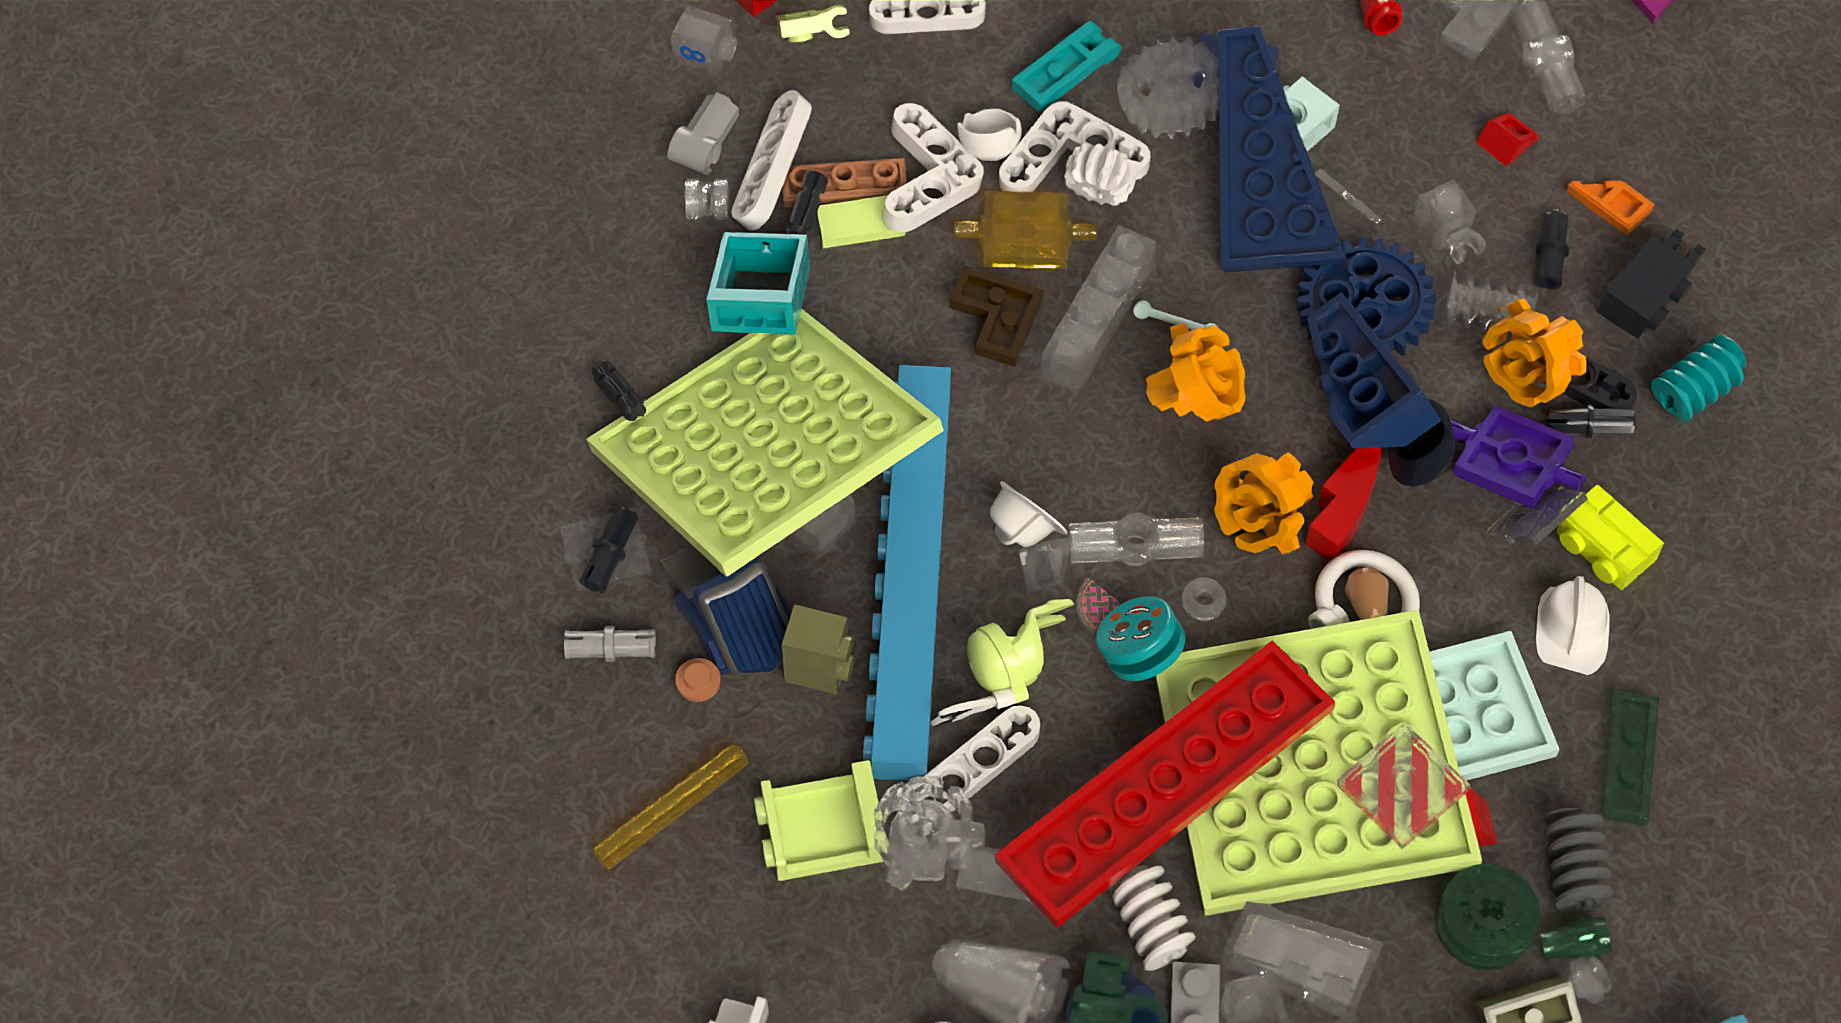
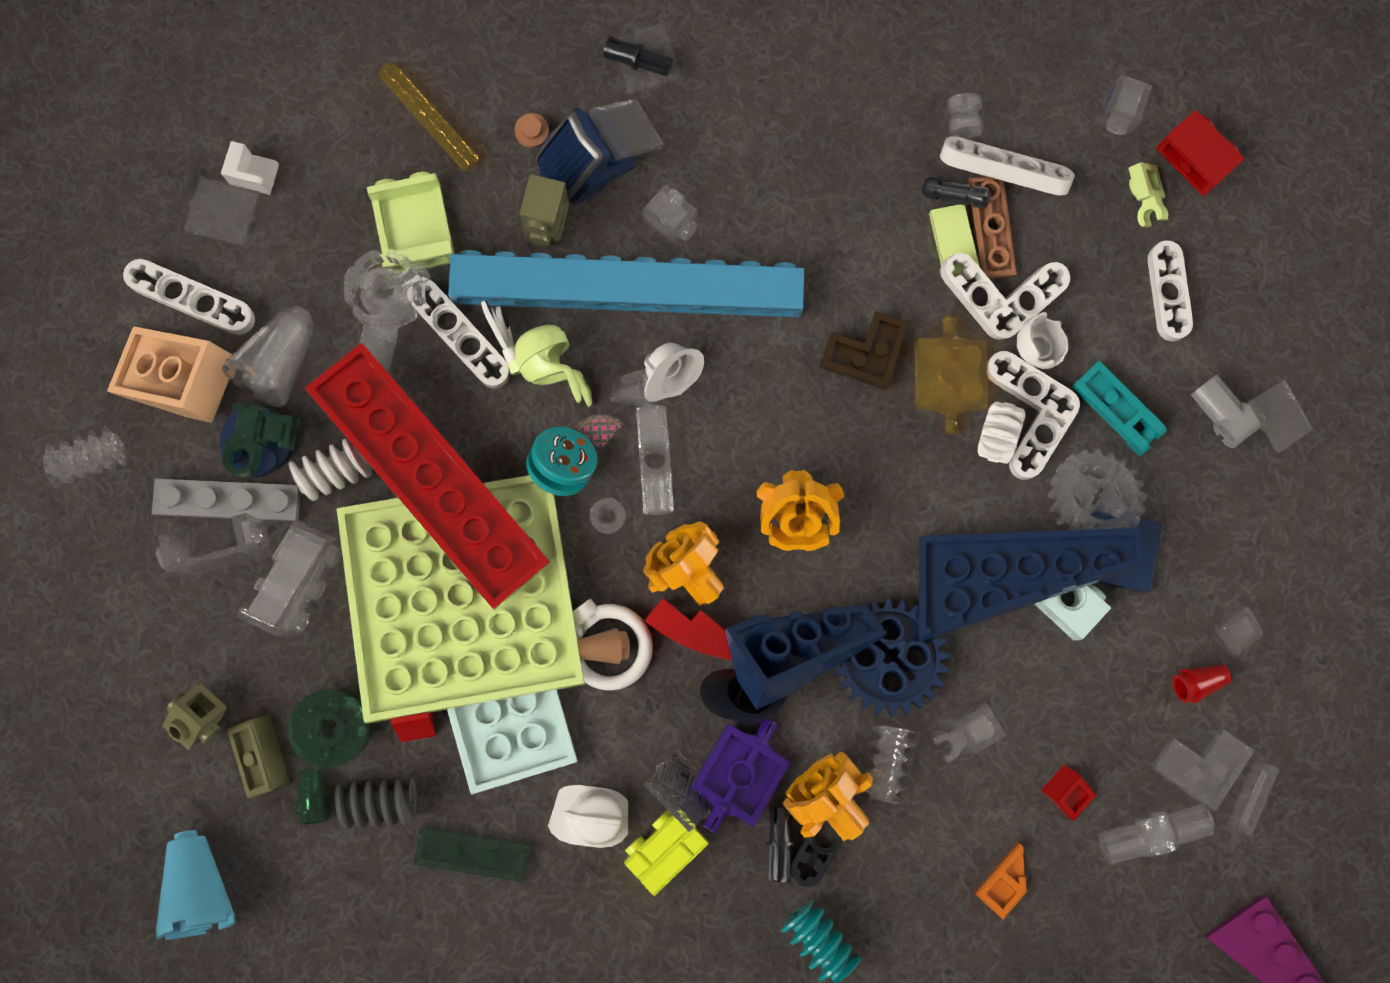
camera: 80 degrees right, 20 degrees up
(610, 643) = (561, 64): light grey pin -> none
(618, 391) = (779, 56): black axle -> none
(702, 139) = (1021, 108): light grey piece -> none
(758, 309) = (846, 158): teal window -> none
(764, 440) = (724, 160): yellowish green plate -> none
(1098, 309) = (870, 432): clear brick -> none
(1143, 310) = (877, 472): light aqua hinge -> none
(1348, 197) = (987, 644): clear piece -> none
(1403, 785) = (426, 662): clear tile -> none
(1552, 250) = (952, 824): black axle -> none
(1589, 979) = (278, 805): clear plate -> none
(1649, 284) = (916, 908): black hinge -> none

